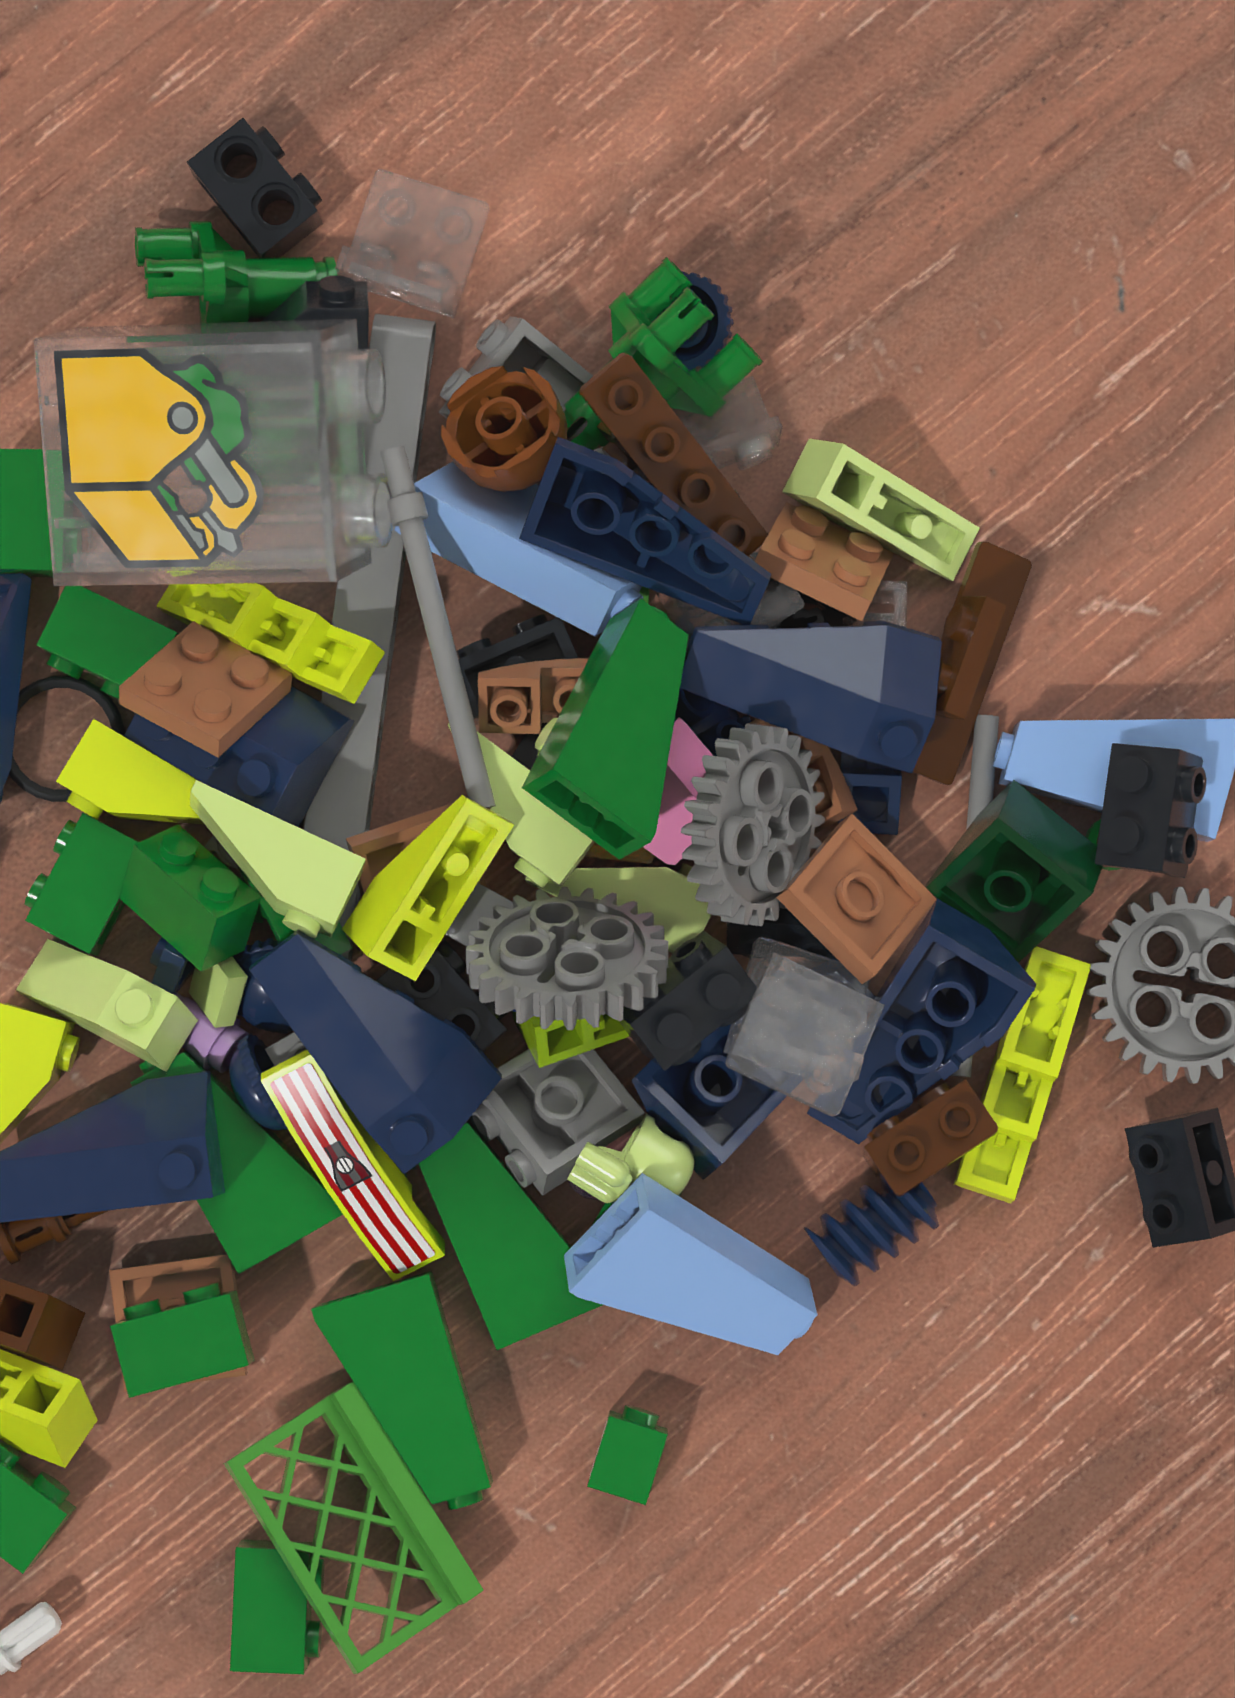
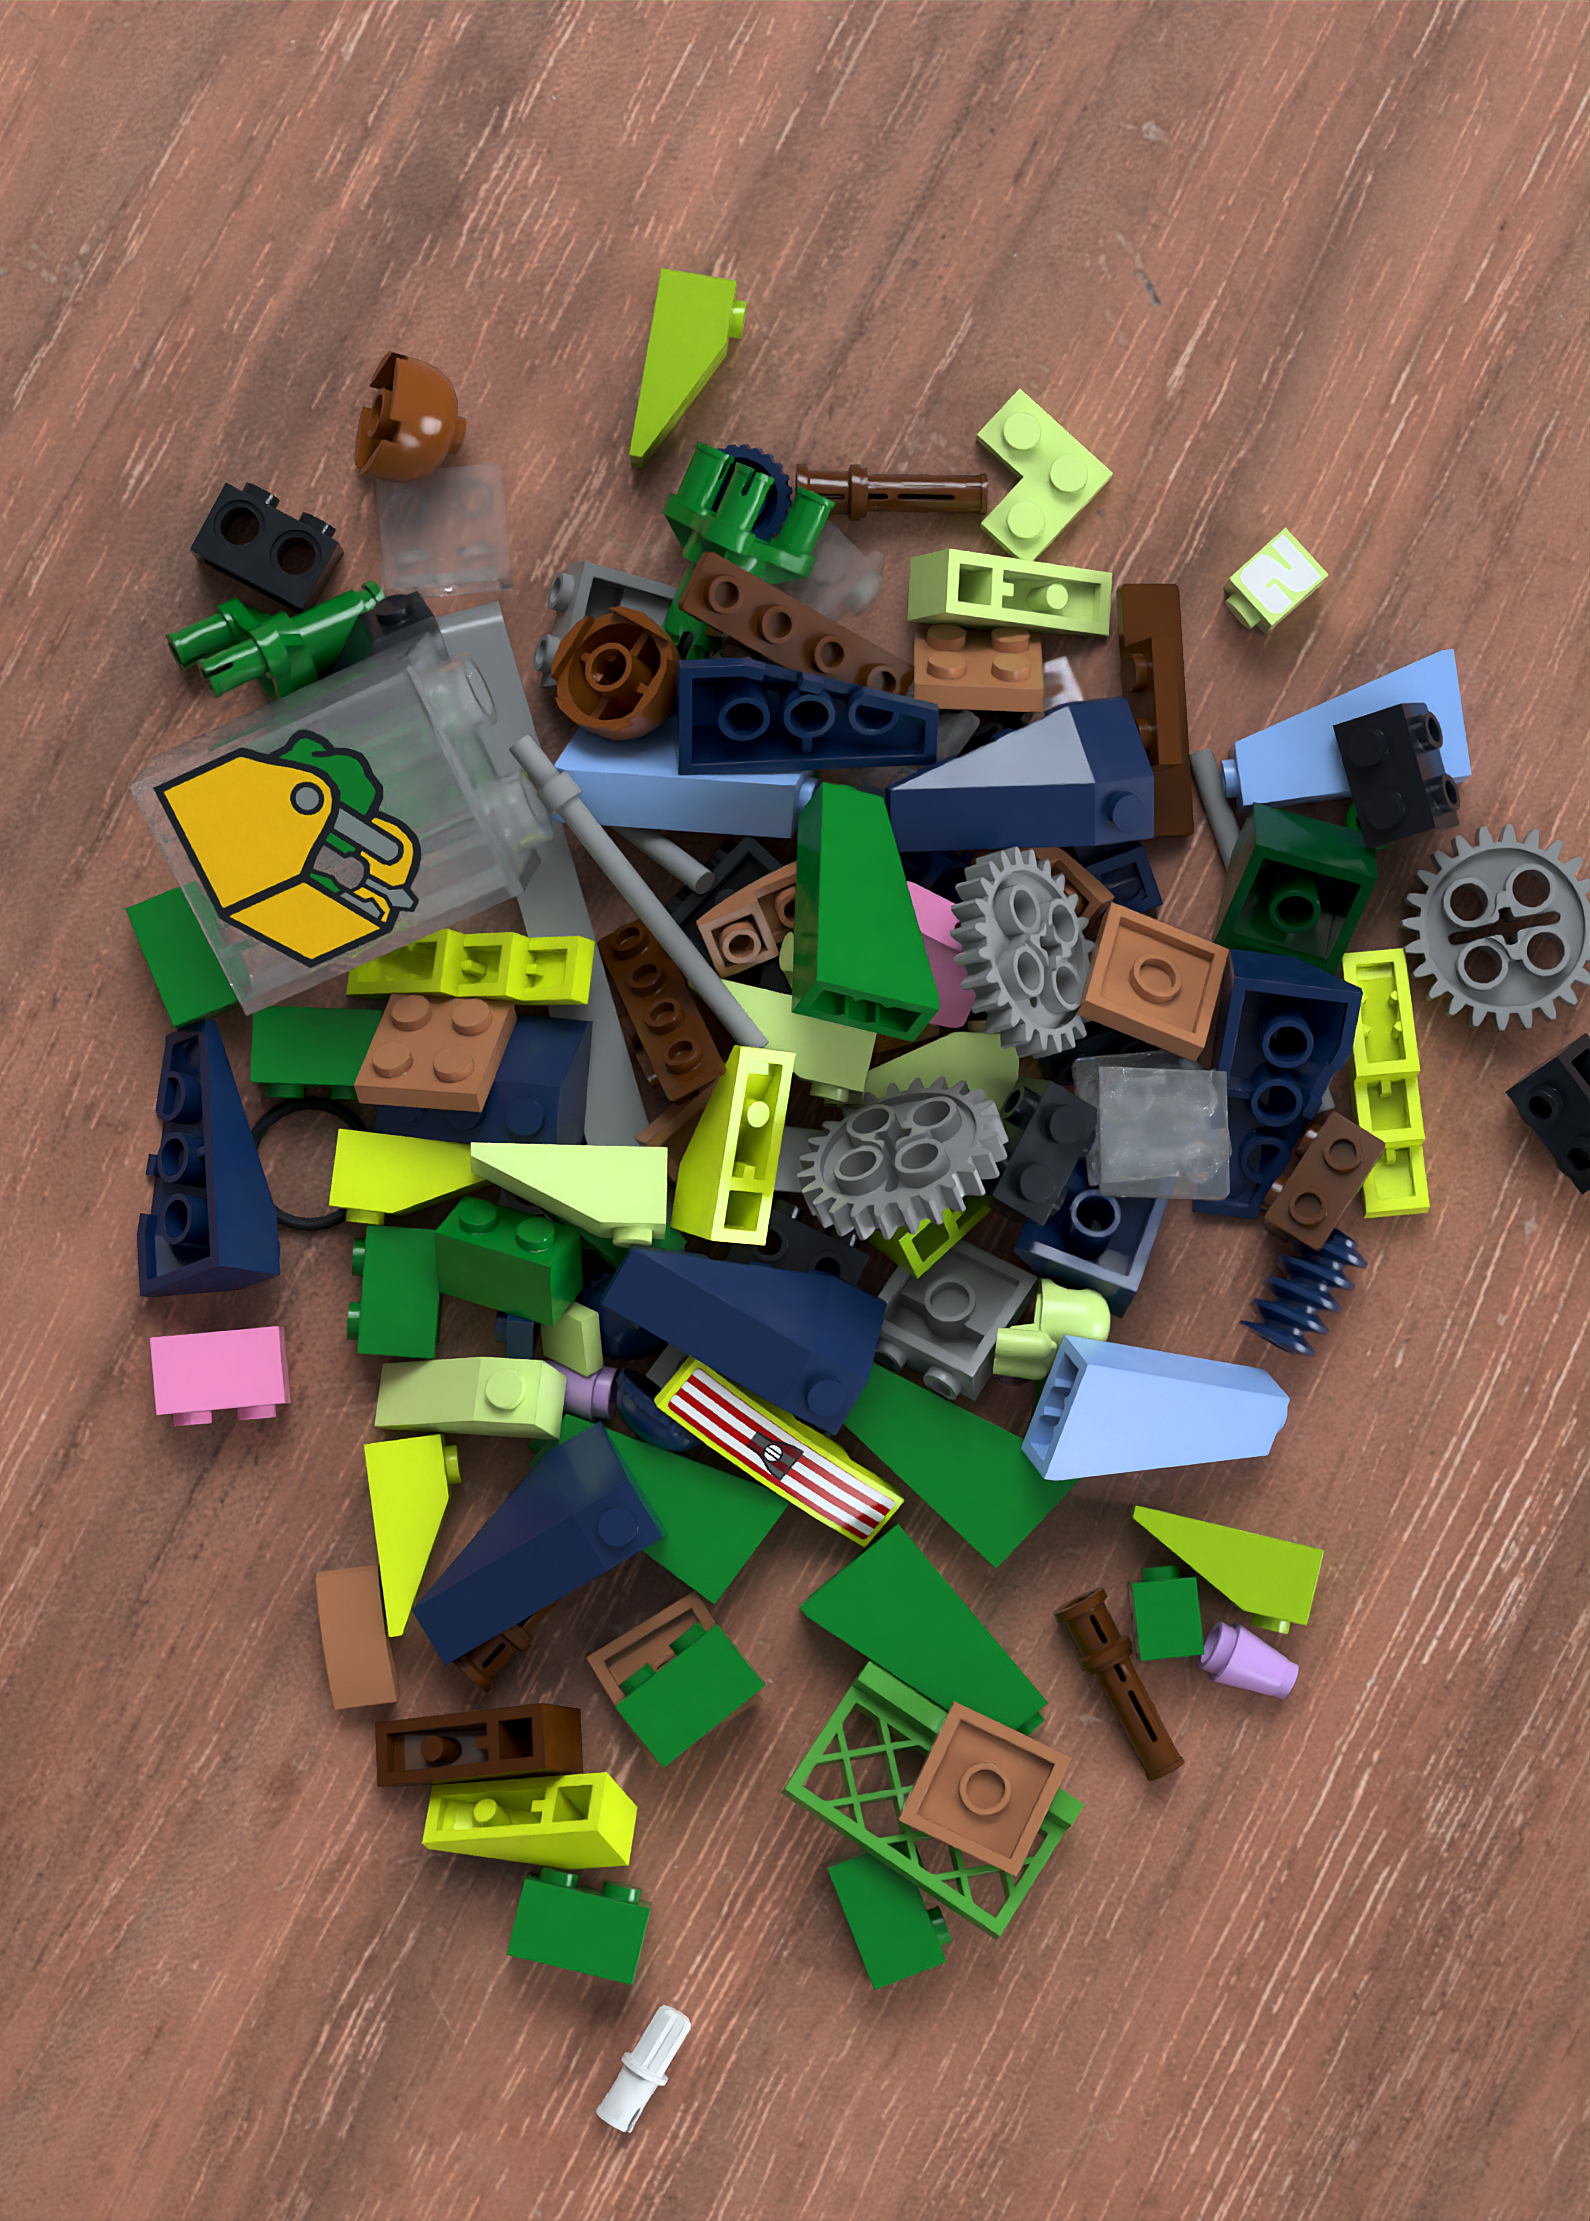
camera: 35 degrees left, 0 degrees up
(400, 1539) = (984, 1788): none -> nougat plate
(413, 742) = (660, 1014): none -> reddish brown bracket
(425, 134) = (409, 421): none -> dark orange cylinder
(484, 608) = (669, 857): none -> light grey bar
(561, 1468) = (1106, 1656): none -> reddish brown pin
(681, 1526) = (1246, 1662): none -> lavender cone
(691, 174) = (685, 347): none -> lime slope
(719, 1447) = (1249, 1569): none -> lime slope
(788, 362) = (921, 493): none -> reddish brown pin
(966, 420) = (1053, 472): none -> yellowish green plate
(1116, 596) = (1273, 583): none -> brick

